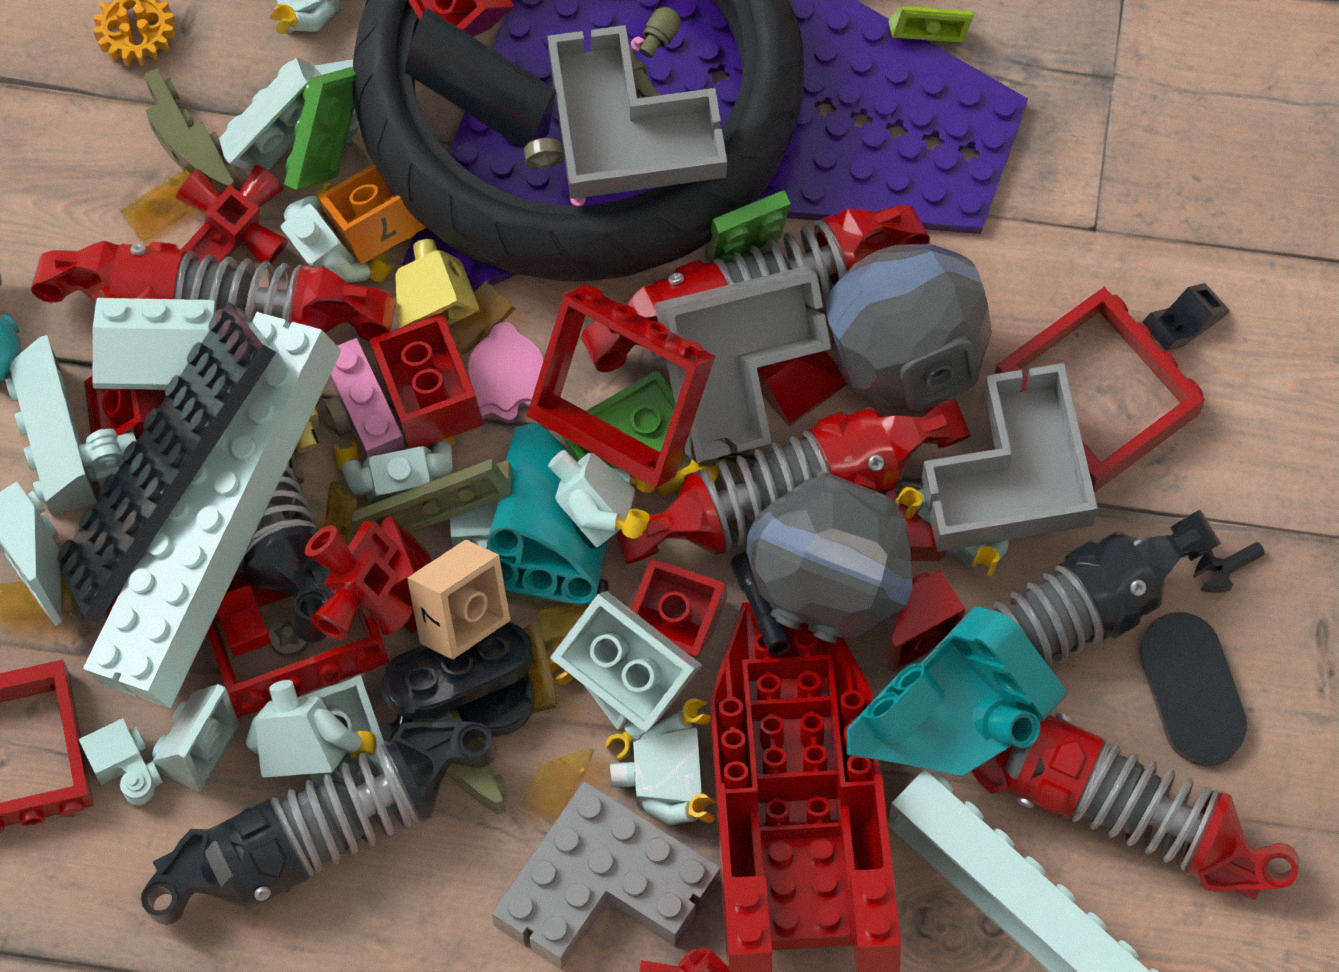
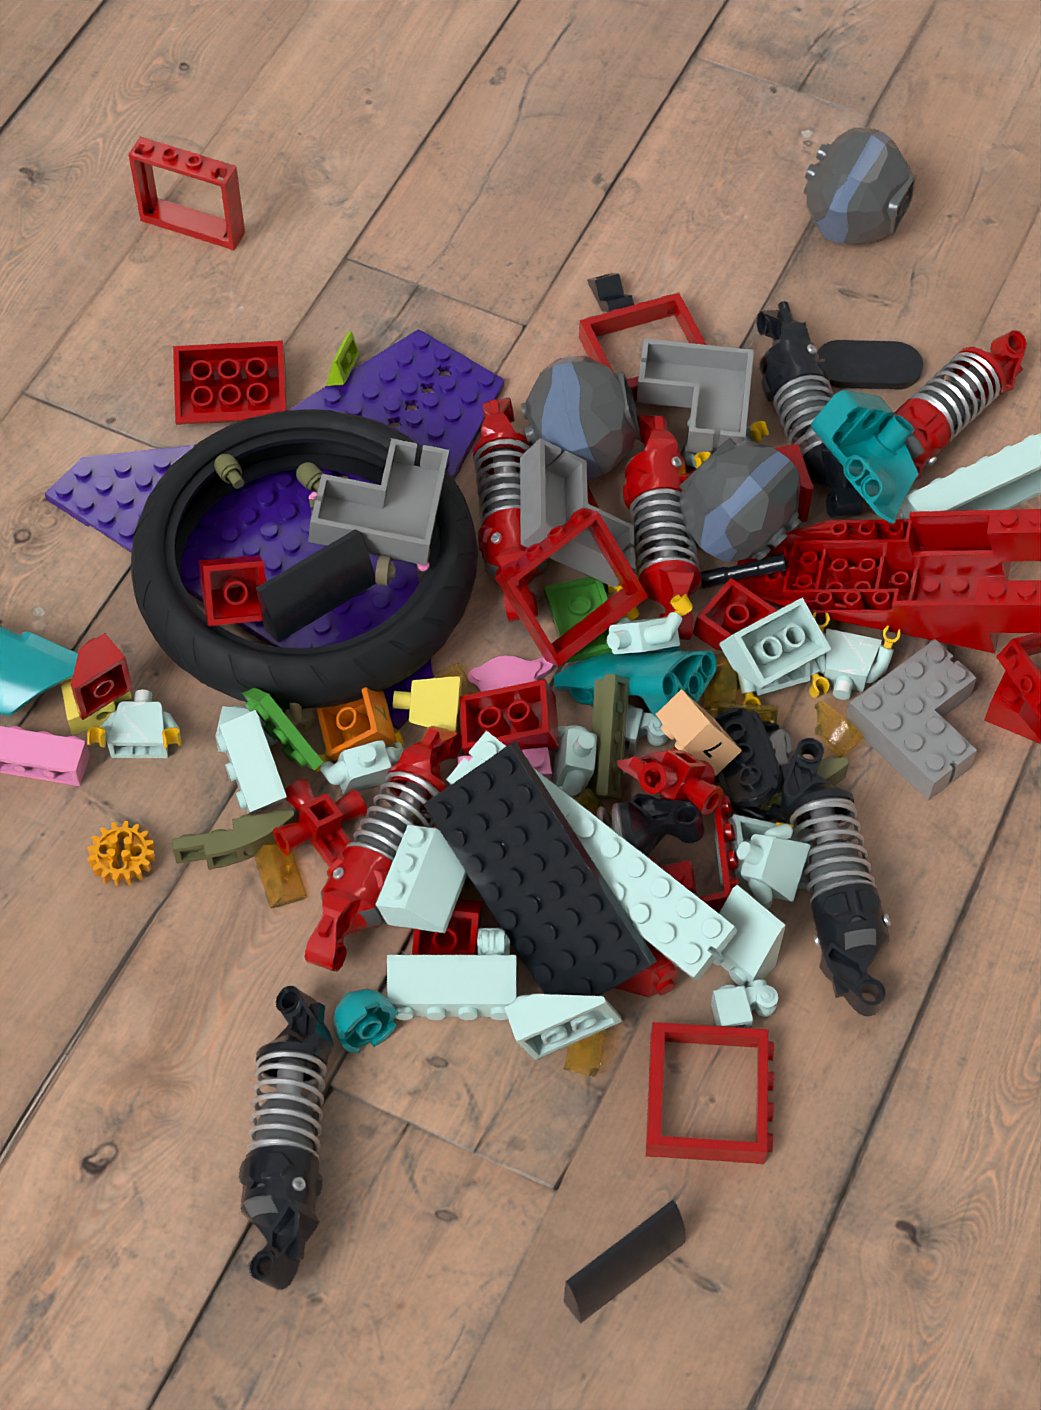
camera: 75 degrees left, 10 degrees down
(748, 227) = (469, 480): bright green plate -> none

